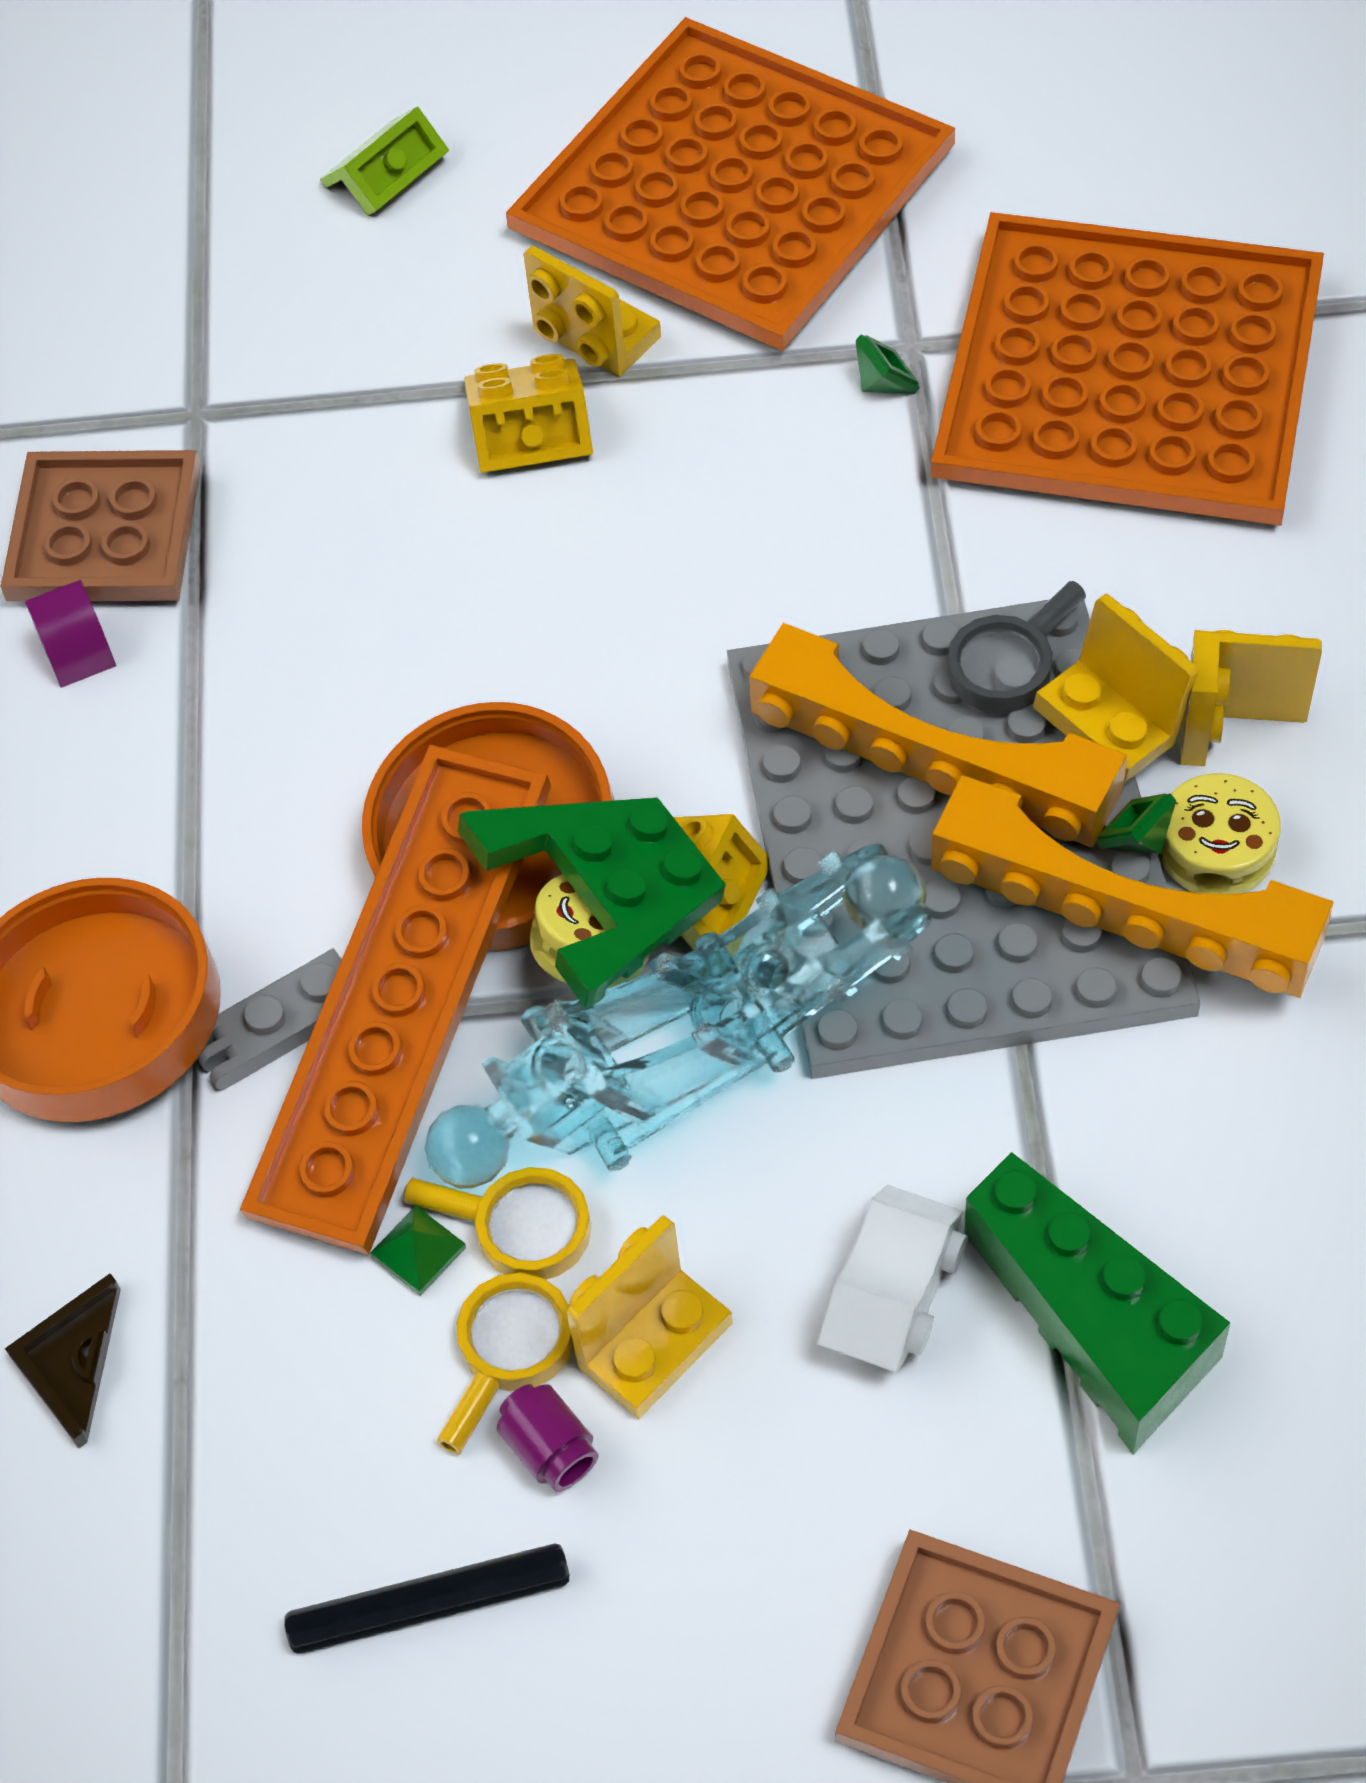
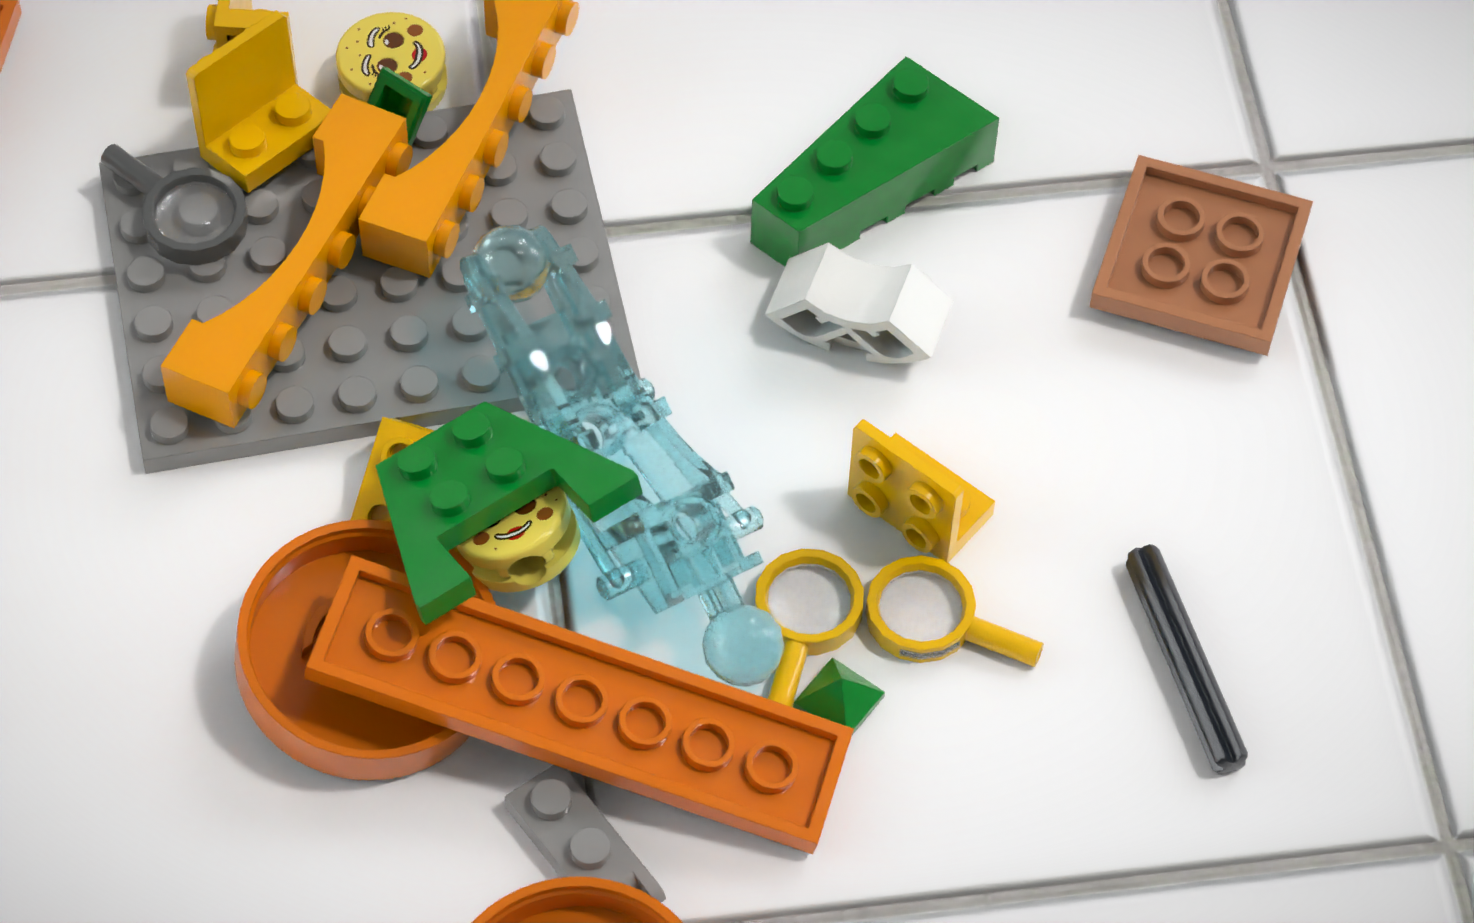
camera: 100 degrees left, 0 degrees up
(546, 1436) = (1030, 565): magenta brick -> none

